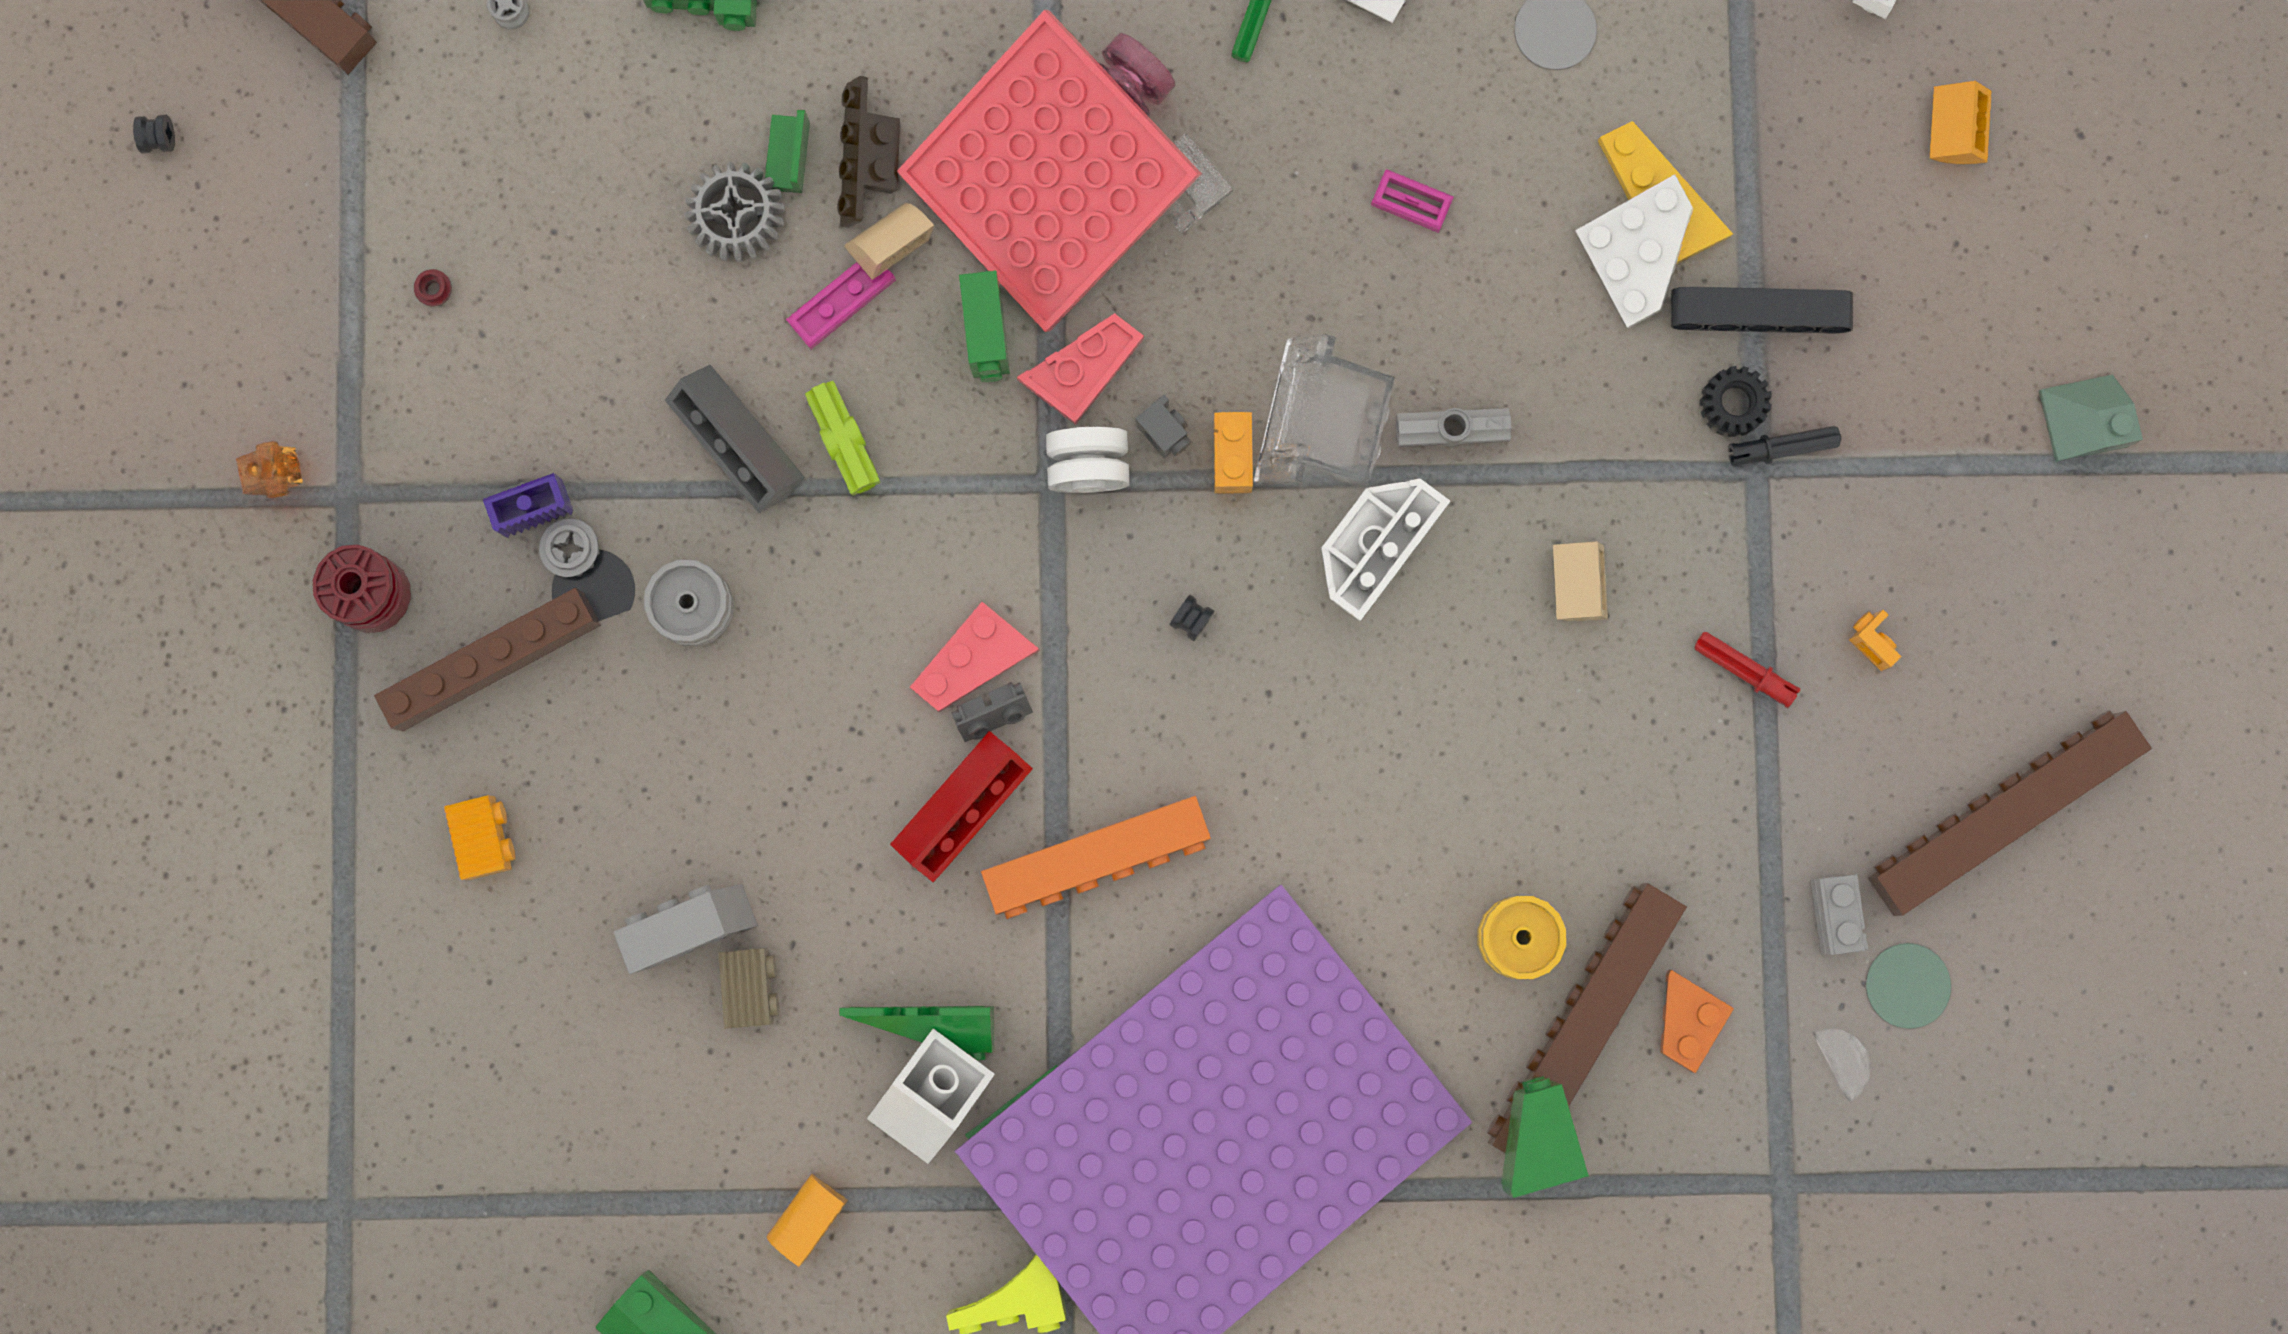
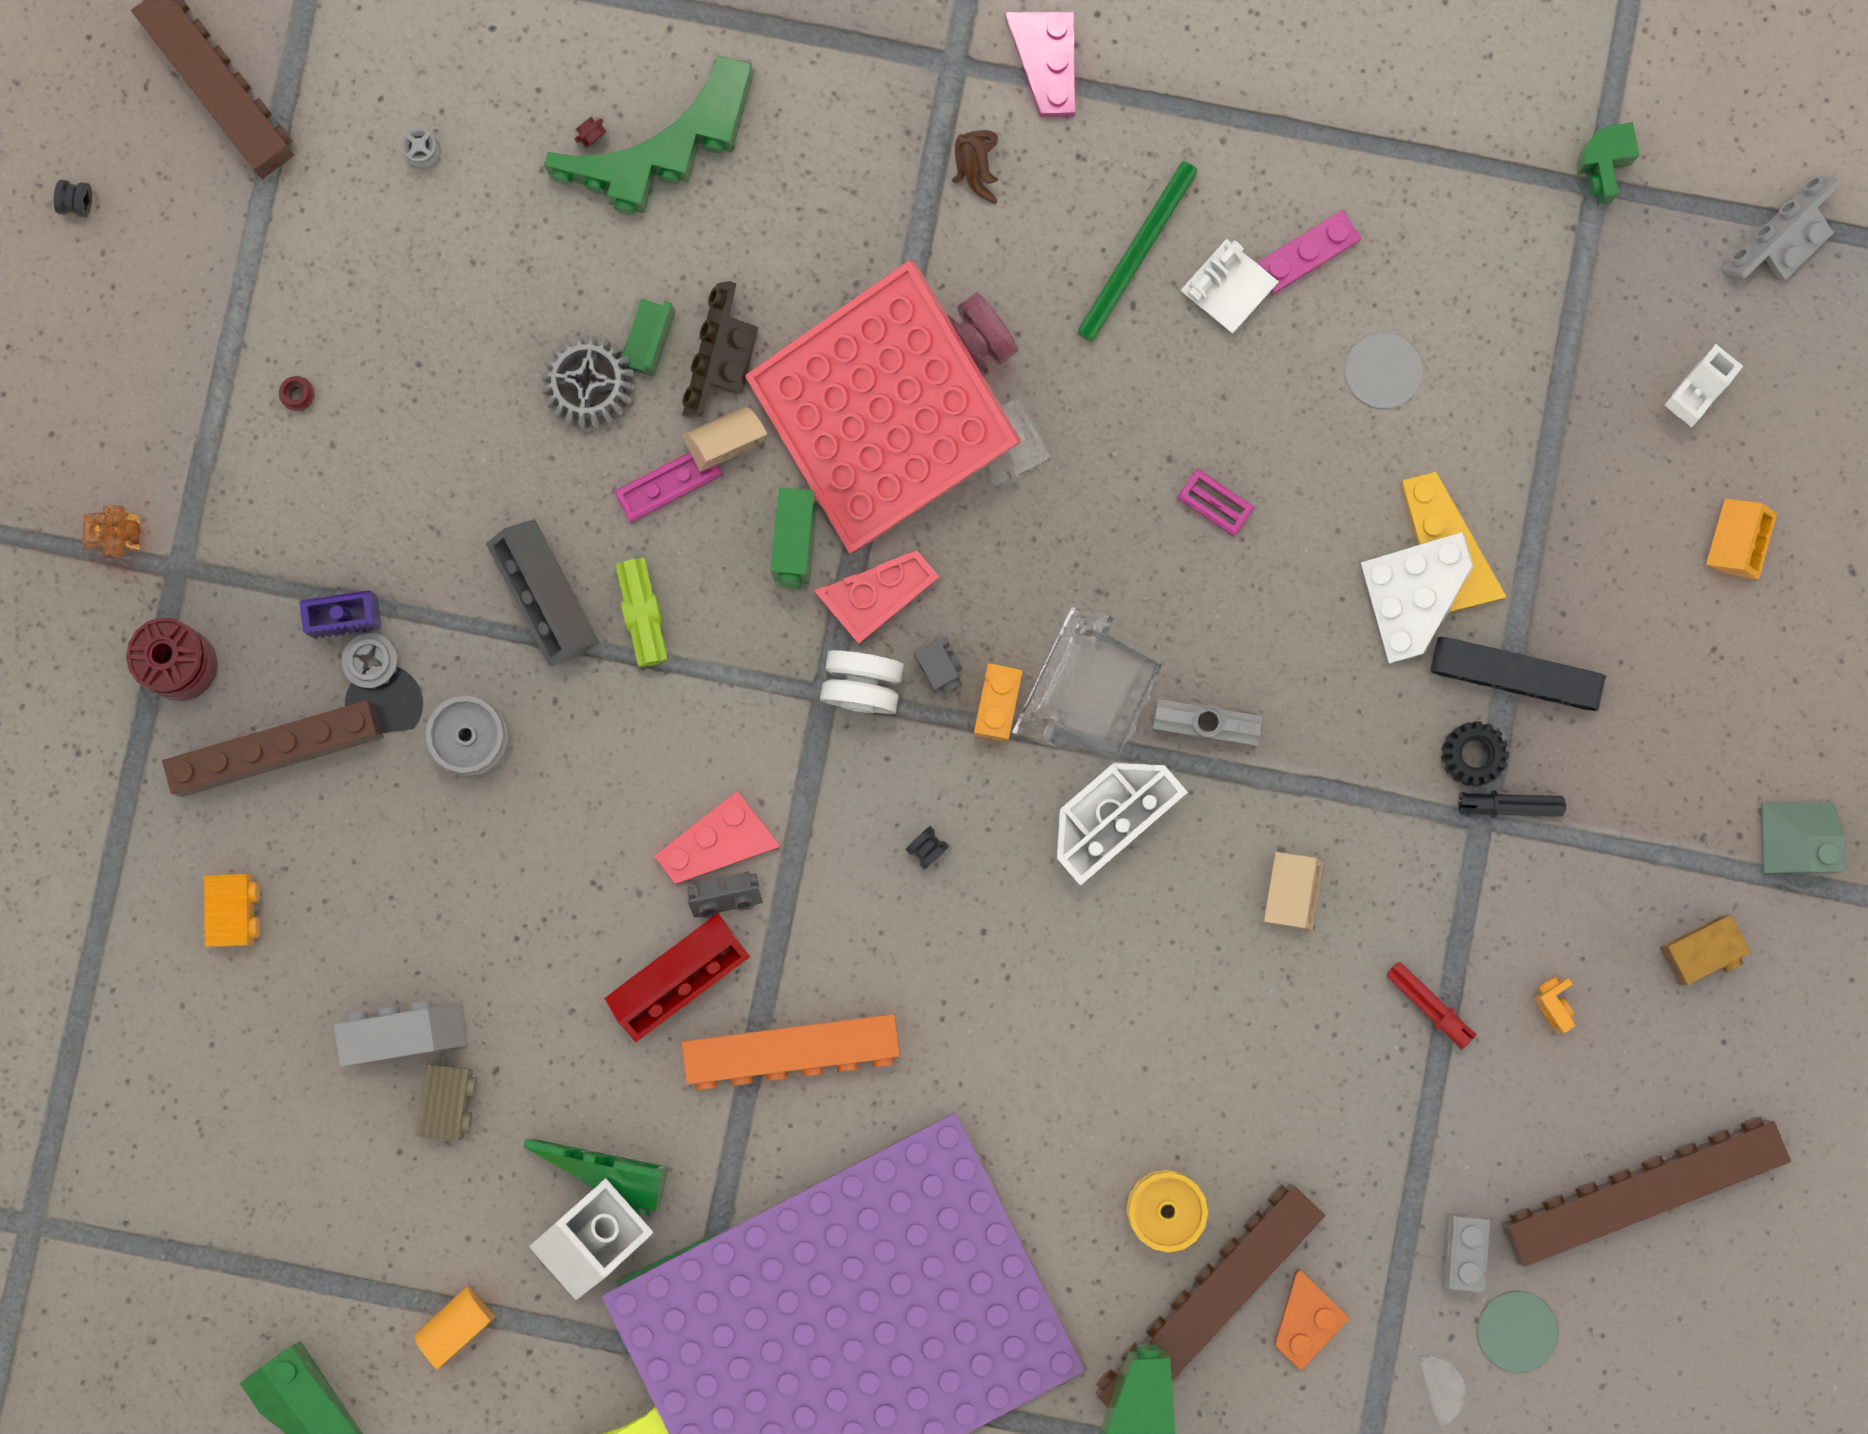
camera: 15 degrees right, 0 degrees up
(2016, 552) = (1706, 950): none -> pearl gold brick

